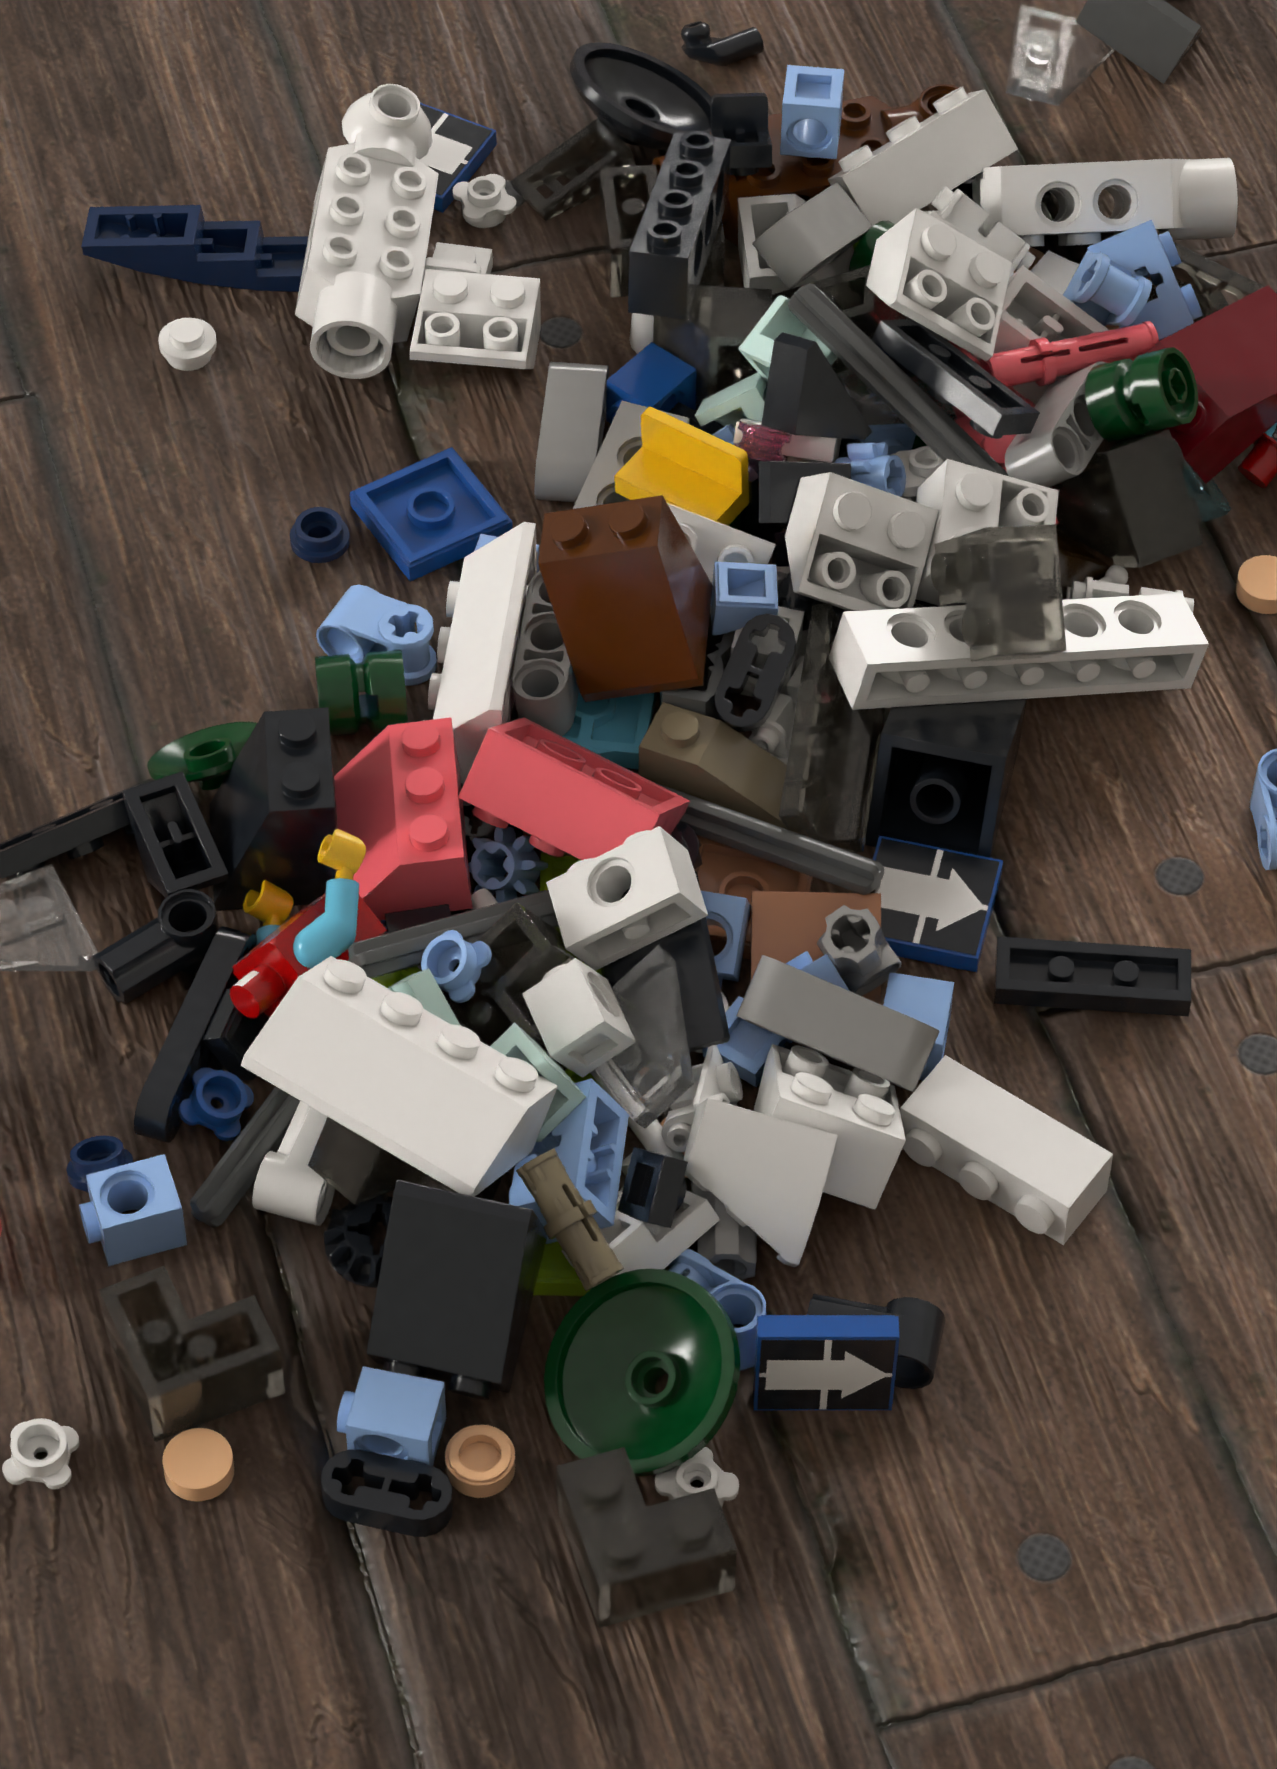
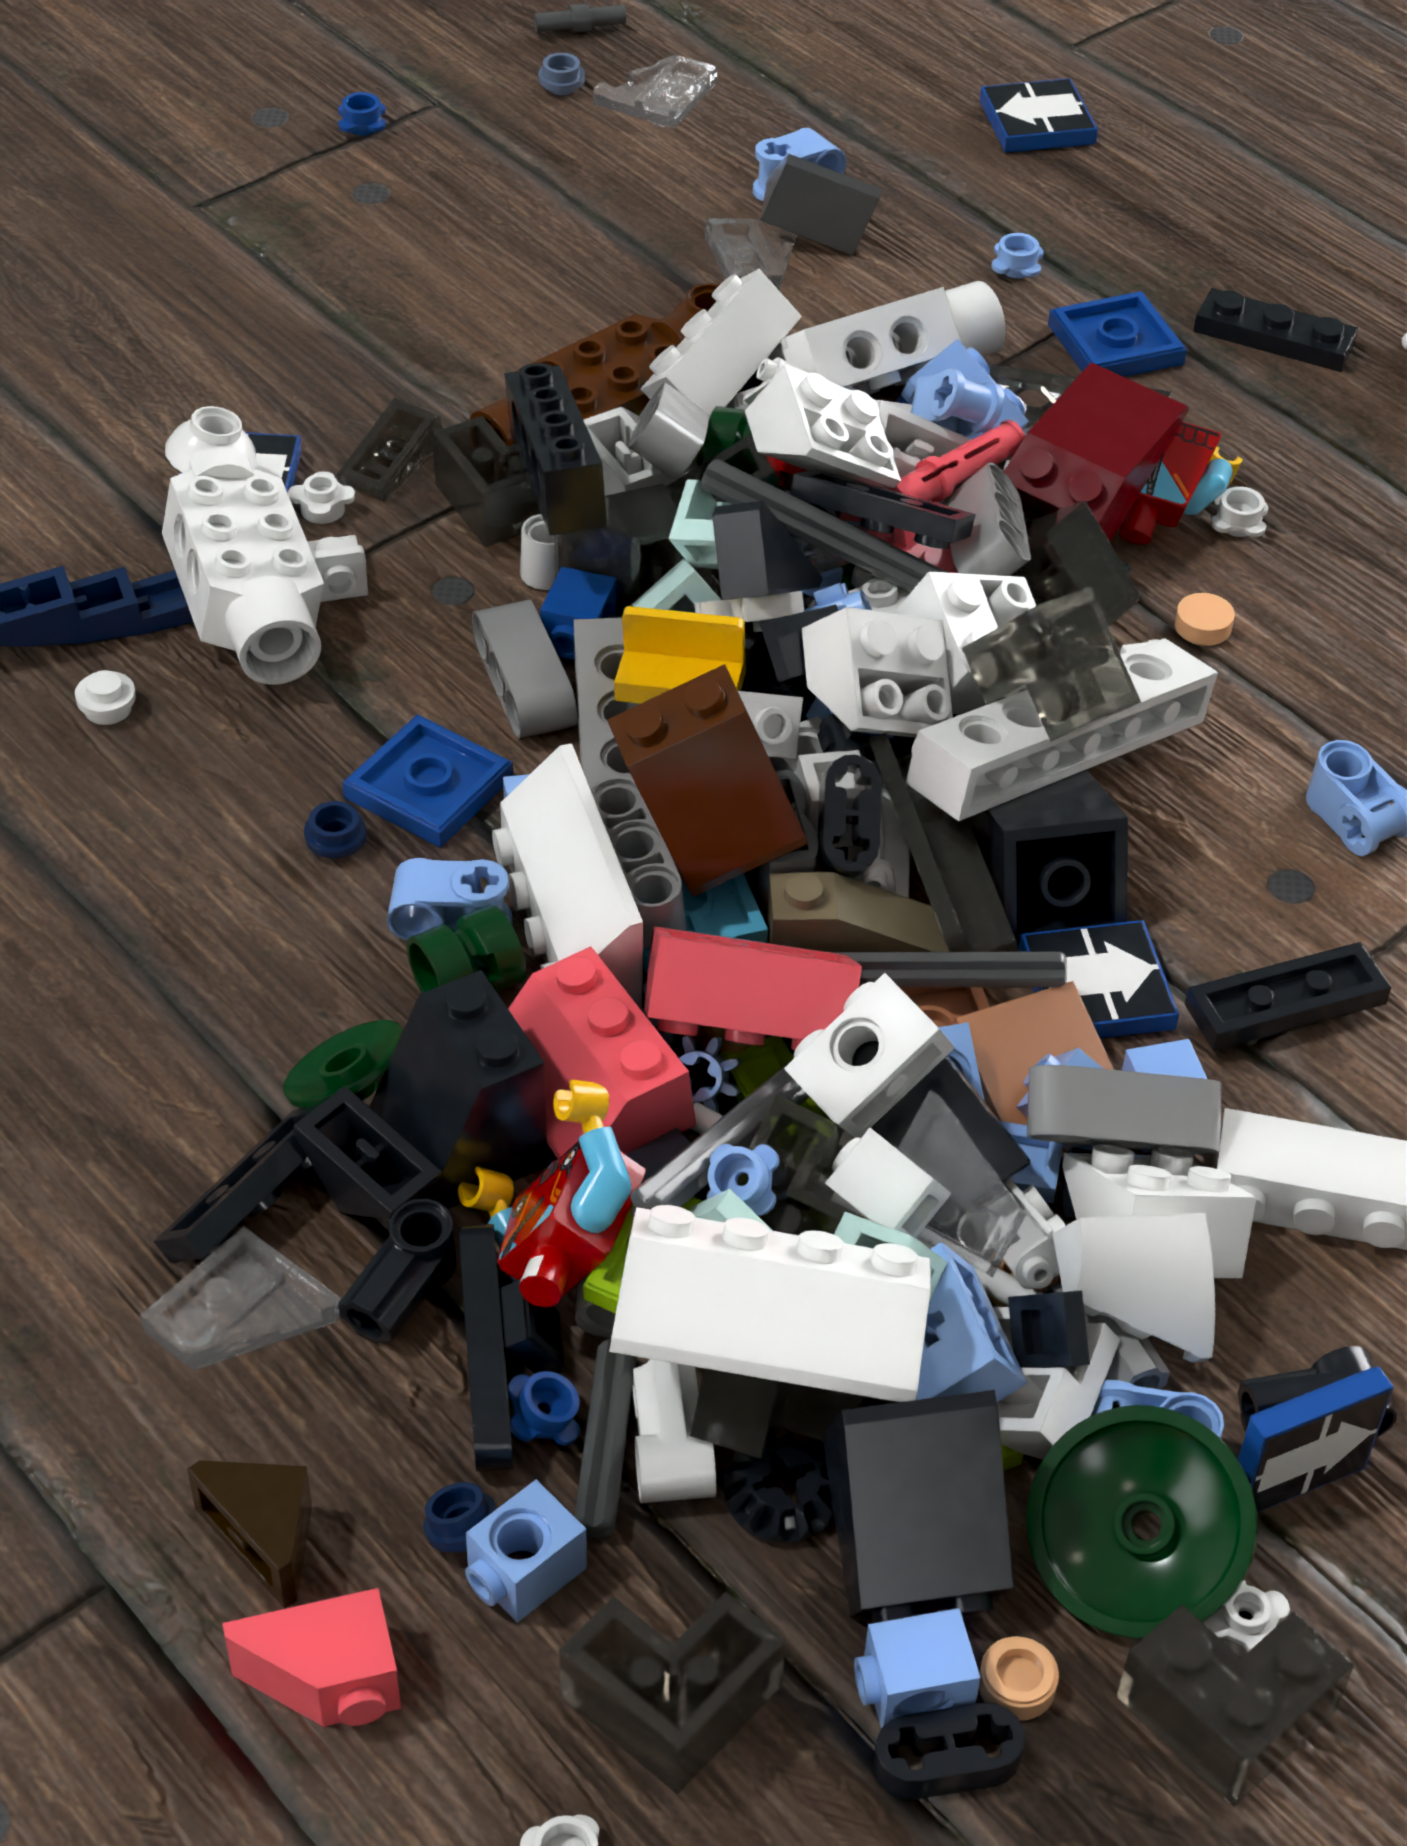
camera: 25 degrees left, 5 degrees down
(198, 1464) = (737, 1800): light nougat tile -> none
(477, 319) = (385, 594): white slope -> none
(570, 1219) = (1017, 1396): dark tan pin -> none
(639, 94) = (427, 373): black dish -> none
(720, 51) = (462, 322): black arm -> none
(741, 594) = (800, 750): light blue slope -> none
(745, 122) = (554, 348): black bracket -> none
(762, 441) = (743, 606): clear pink bush -> none
(811, 112) = (610, 329): light blue brick -> none
(858, 949) = (1099, 1026): light grey piece -> none
(1141, 394) = (1048, 476): dark green wheel -> none

